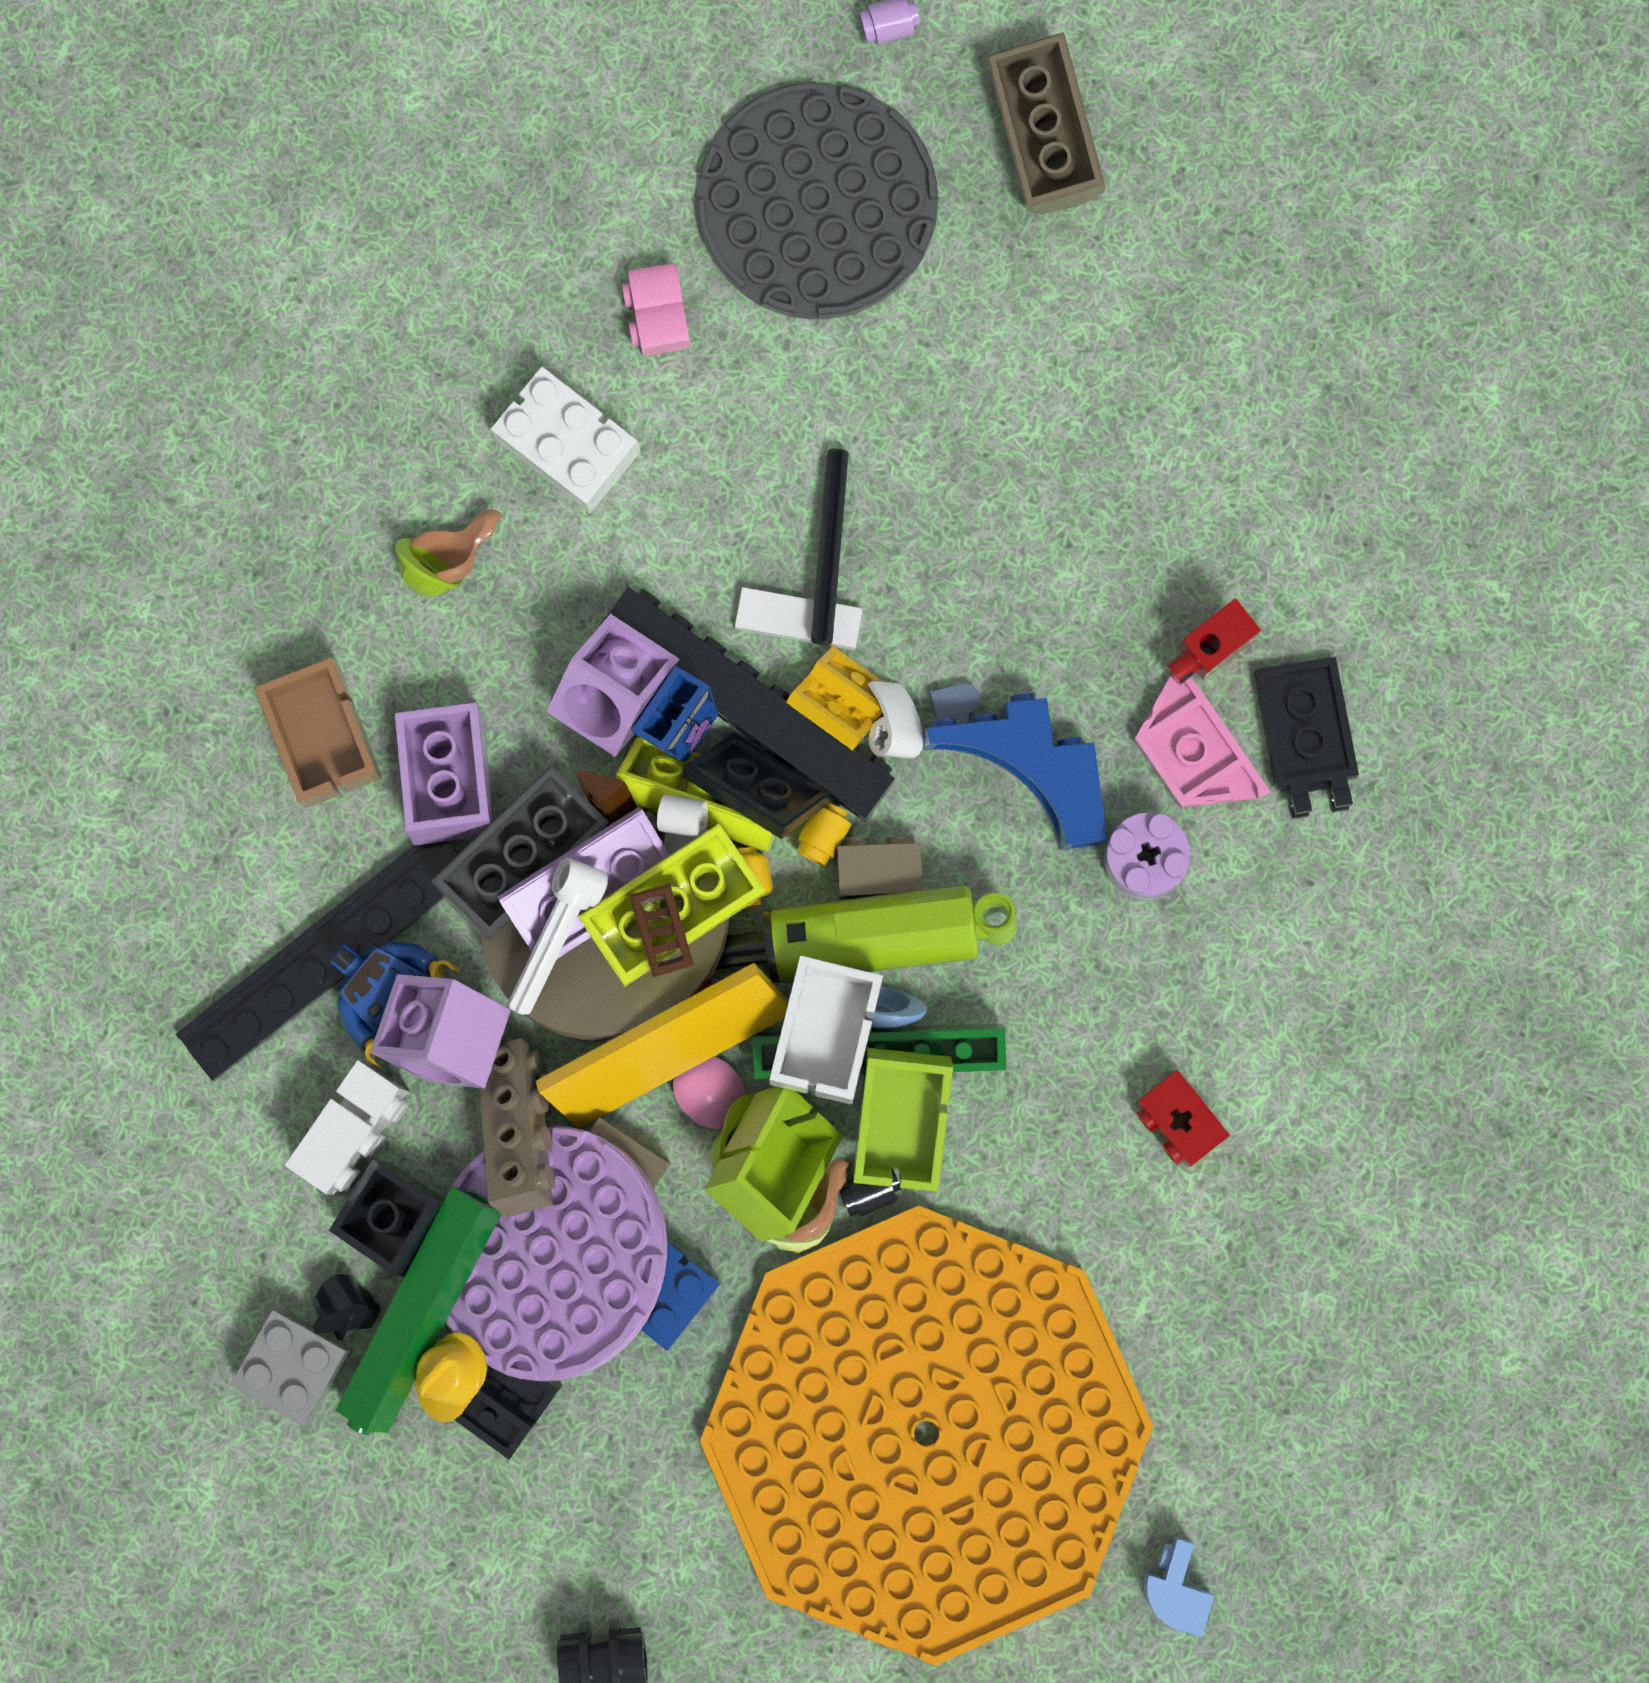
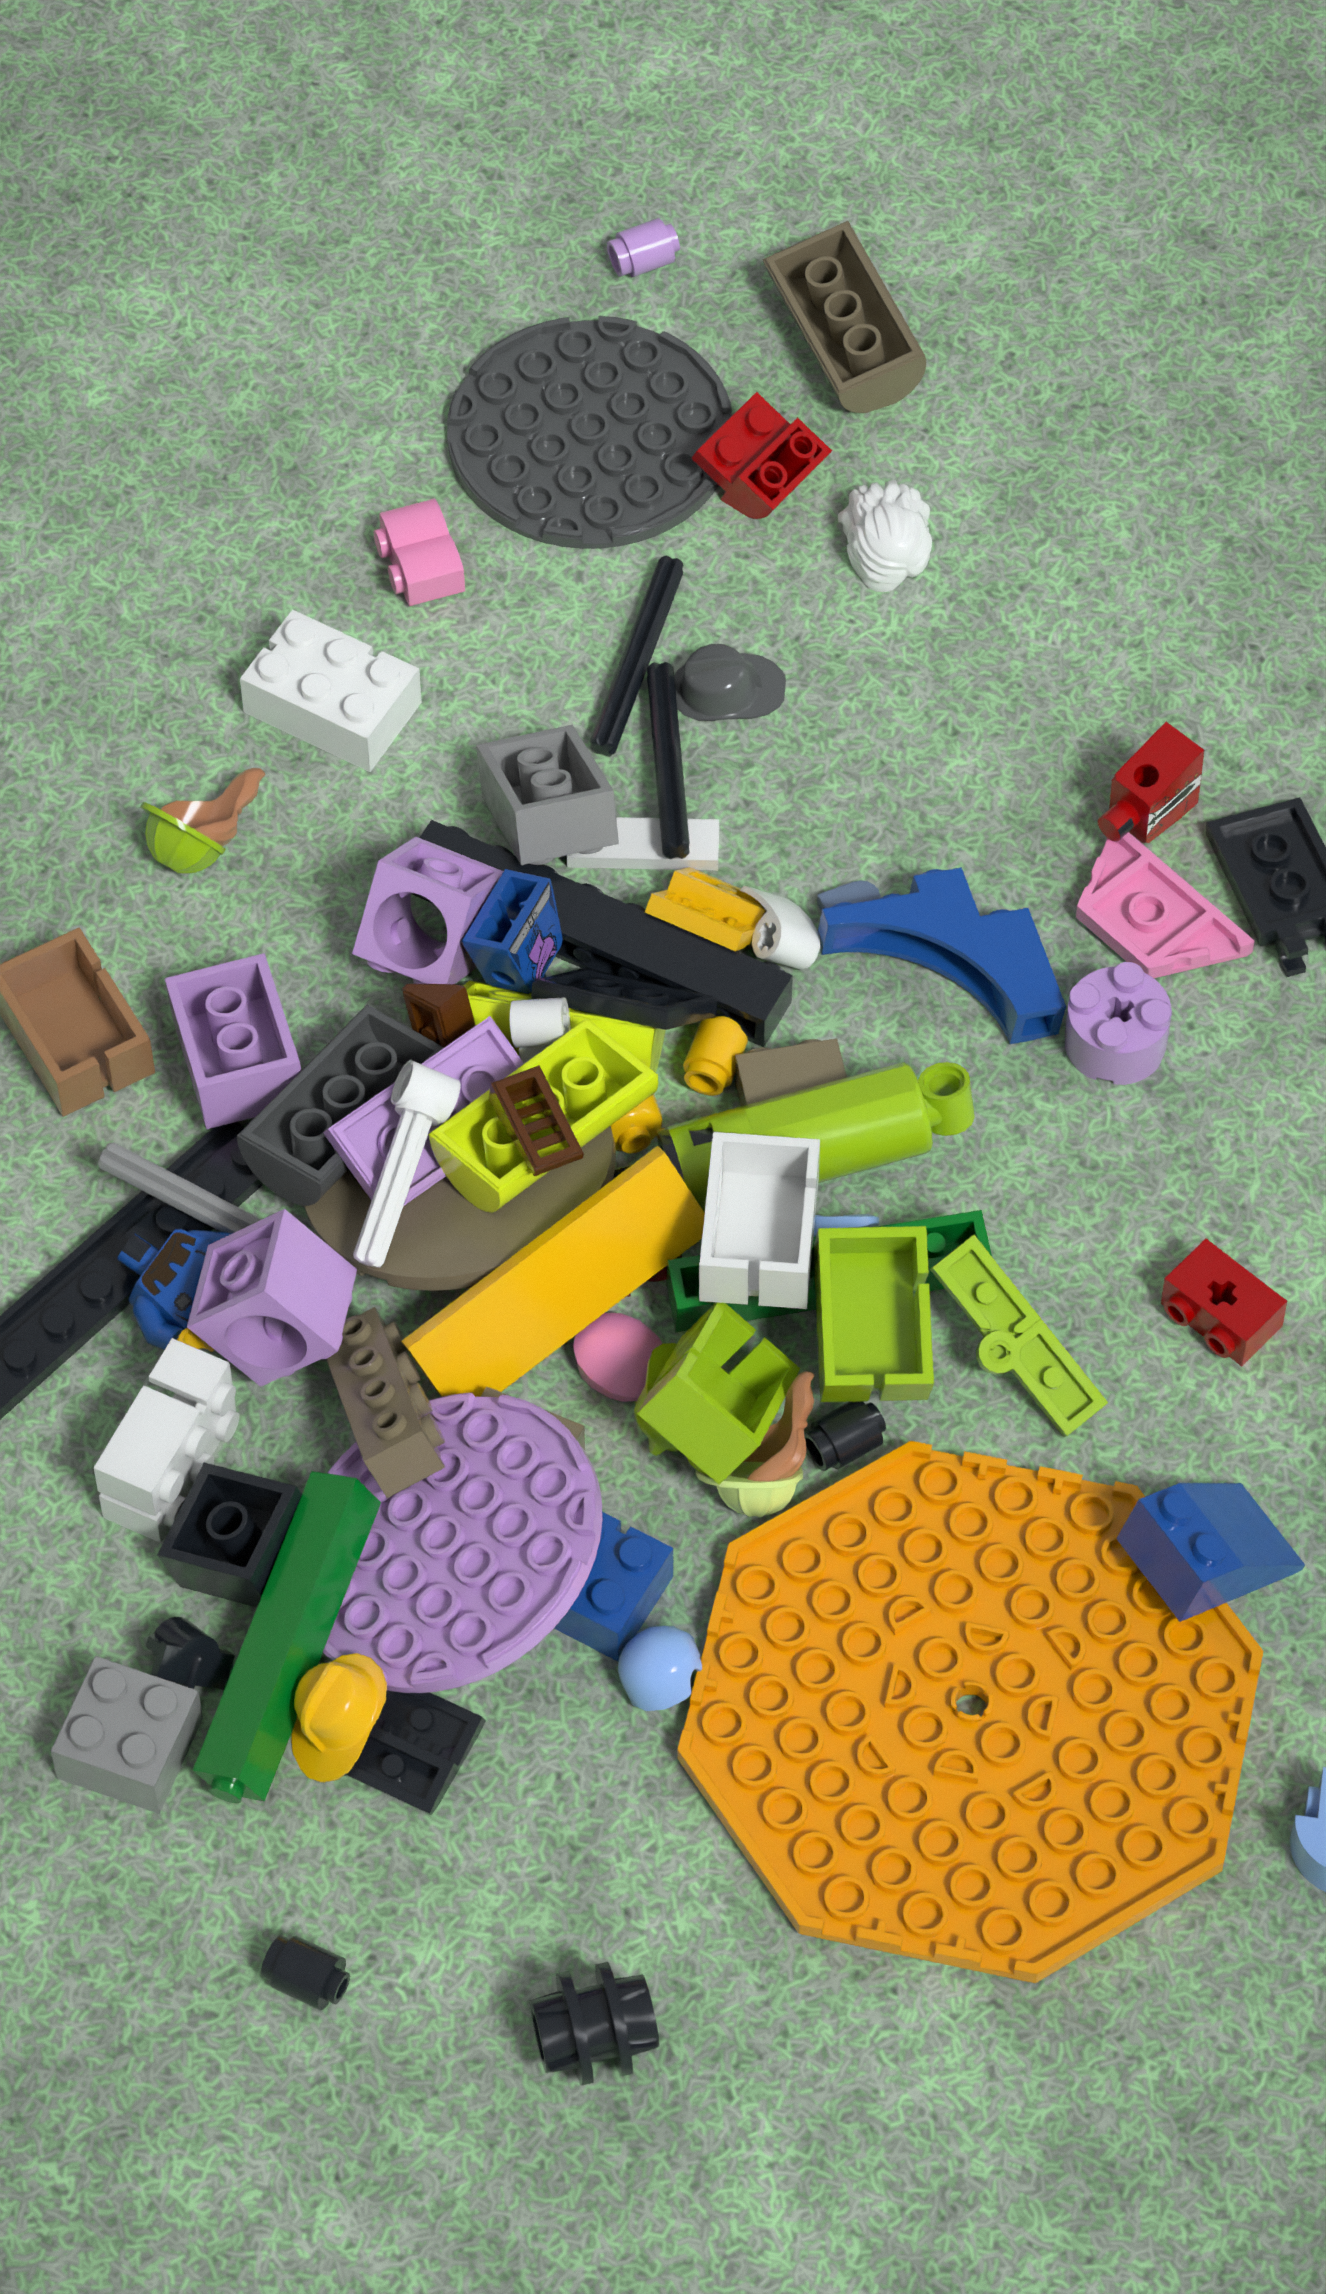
camera: 10 degrees left, 25 degrees down
(400, 1578) = (305, 1971): none -> black brick
(409, 924) = (173, 1189): none -> light grey axle
(696, 1370) = (658, 1667): none -> light blue hair
(723, 581) = (547, 795): none -> light grey brick
(821, 435) = (636, 656): none -> black axle
(892, 474) = (728, 685): none -> dark grey piece
(952, 258) = (760, 457): none -> red brick
(1013, 1136) = (1017, 1337): none -> lime hinge
(1045, 346) = (886, 534): none -> white hair
(1130, 1337) = (1205, 1545): none -> blue slope

